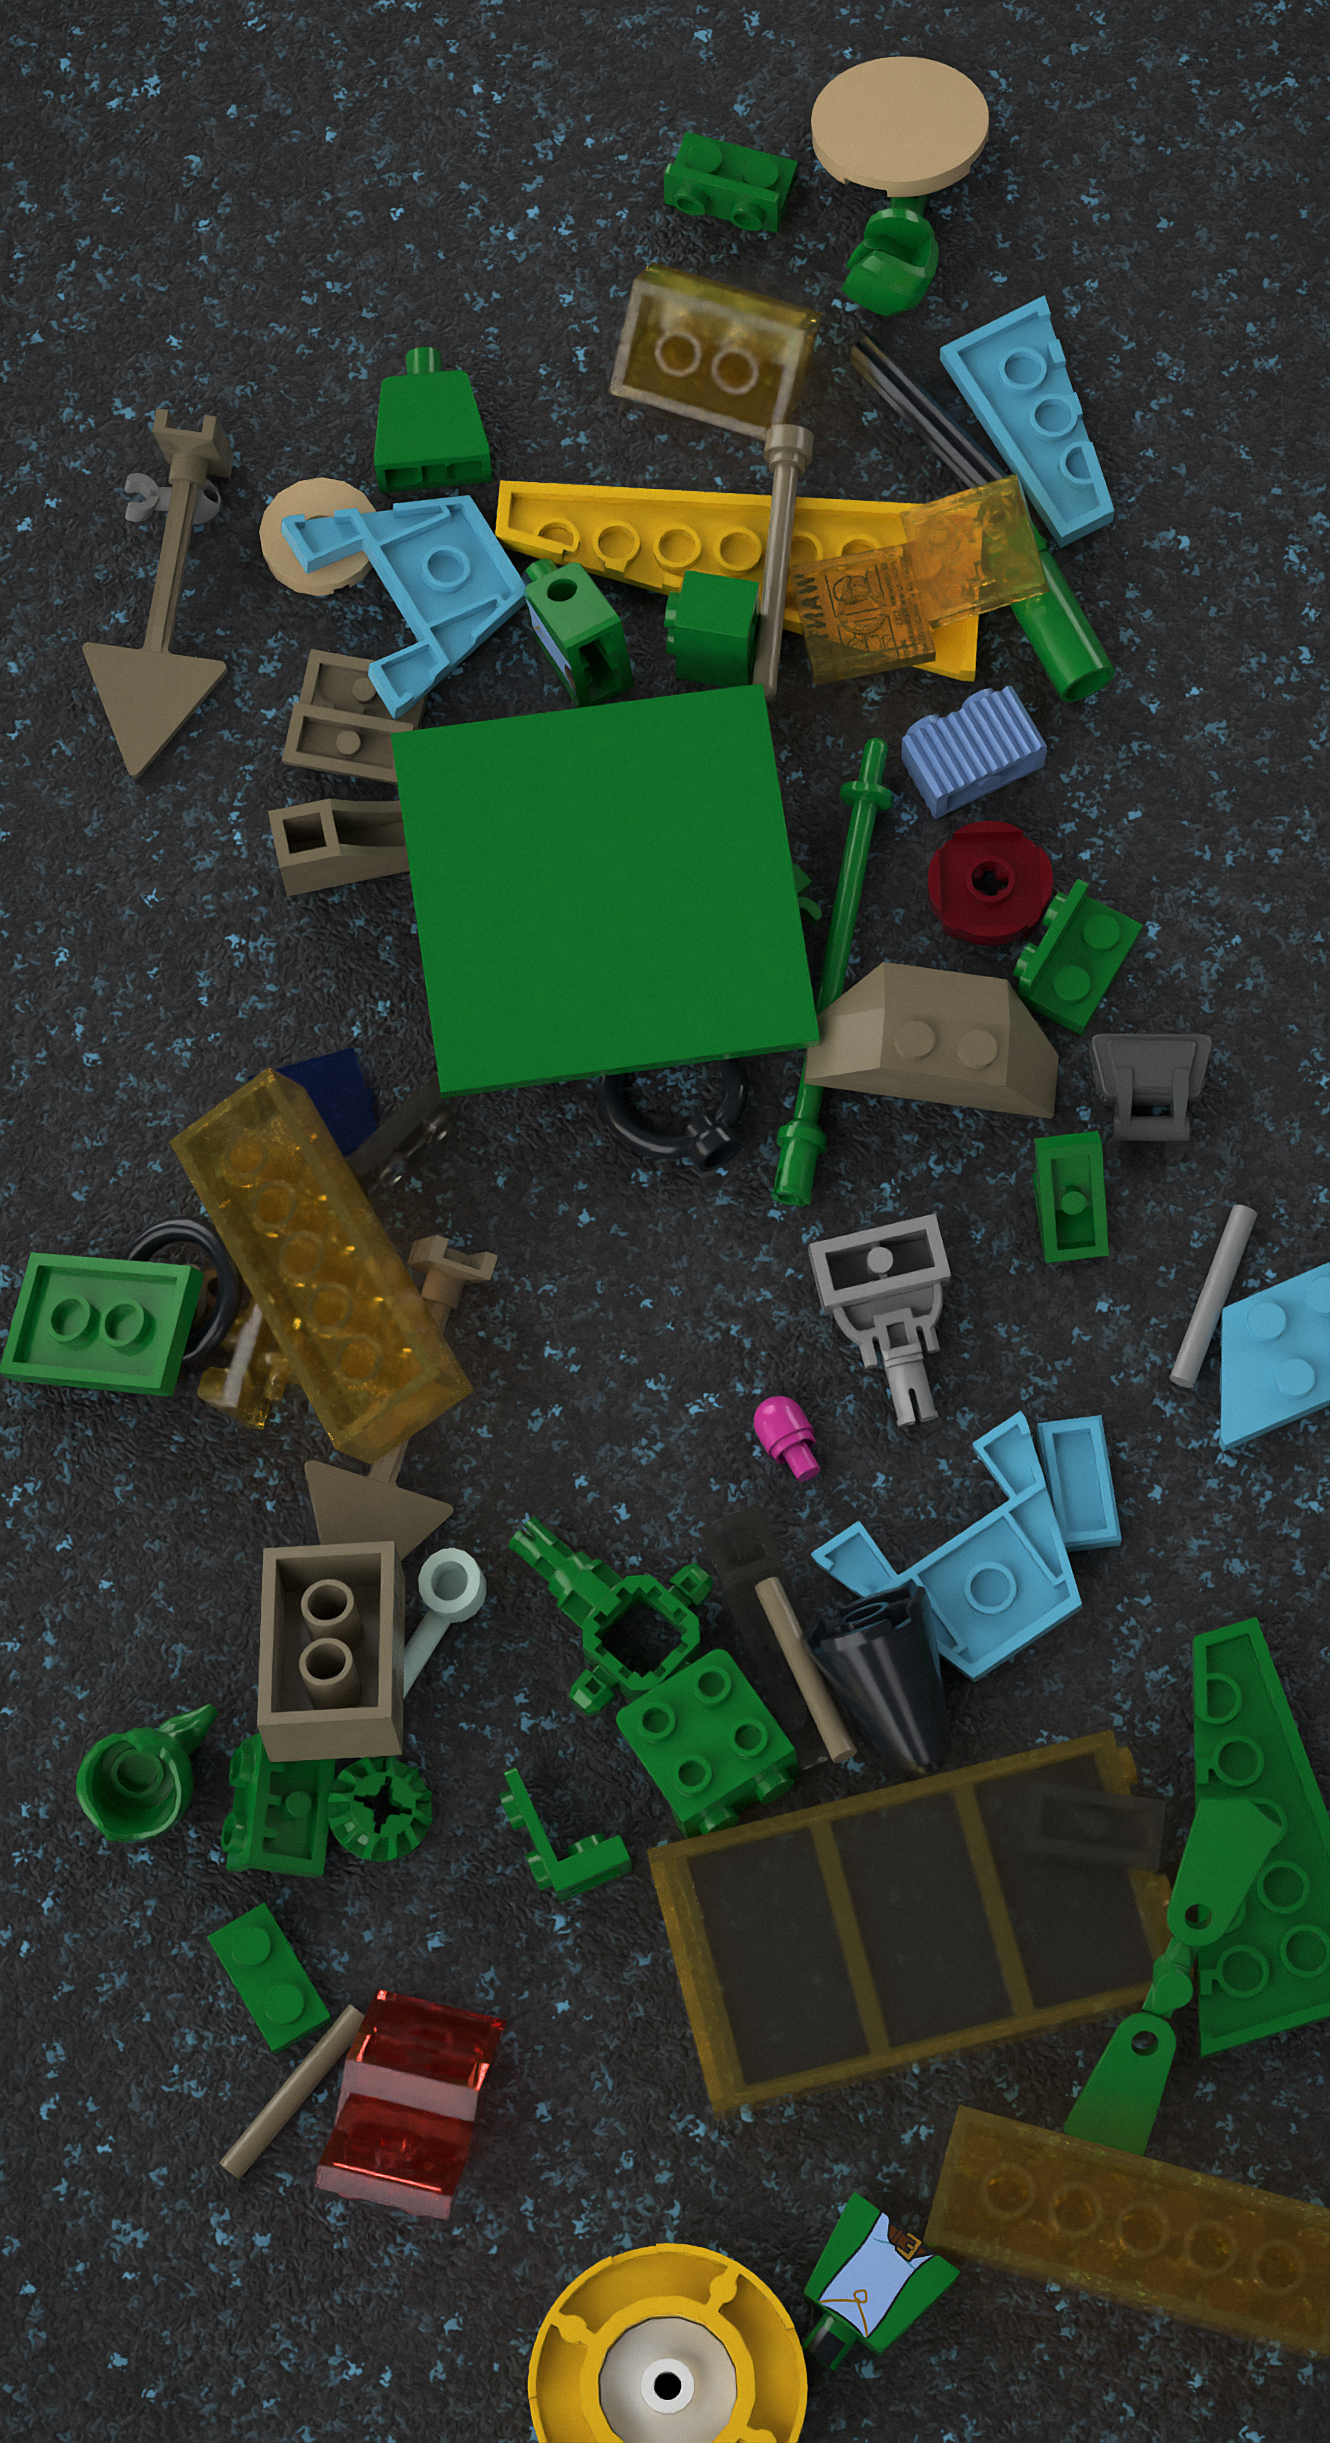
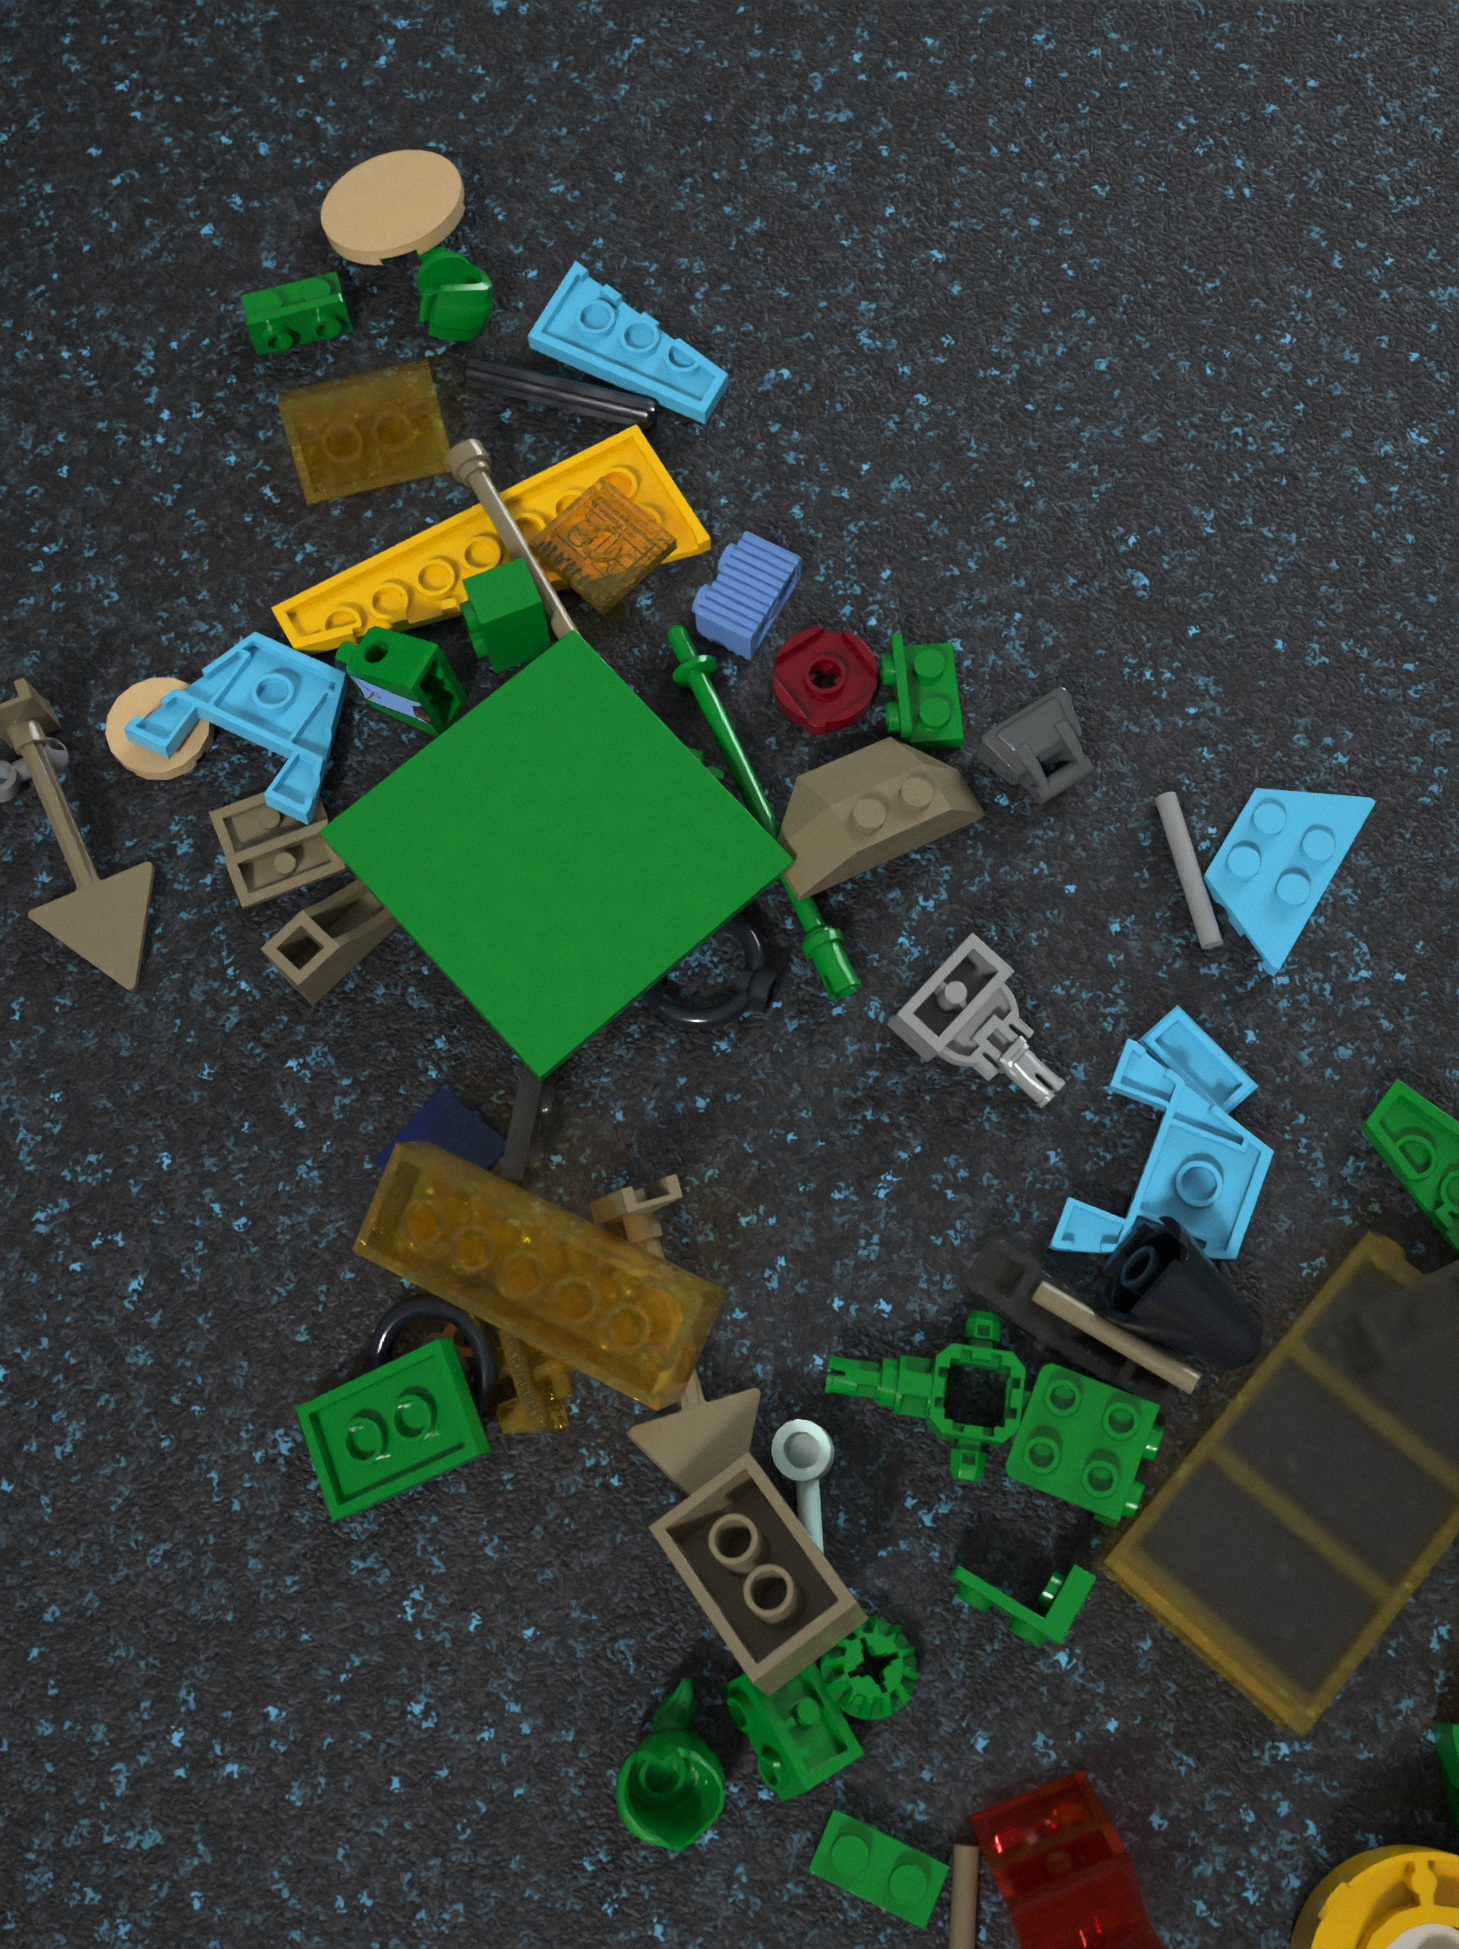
camera: 35 degrees left, 0 degrees up
(429, 428) = (193, 601): green torso -> none
(787, 1435) = (966, 1167): dark pink cylinder -> none
(974, 551) = (656, 451): clear yellow tile -> none
(1063, 635) = (730, 468): green piece -> none
(1071, 1196) = (1045, 861): green slope -> none

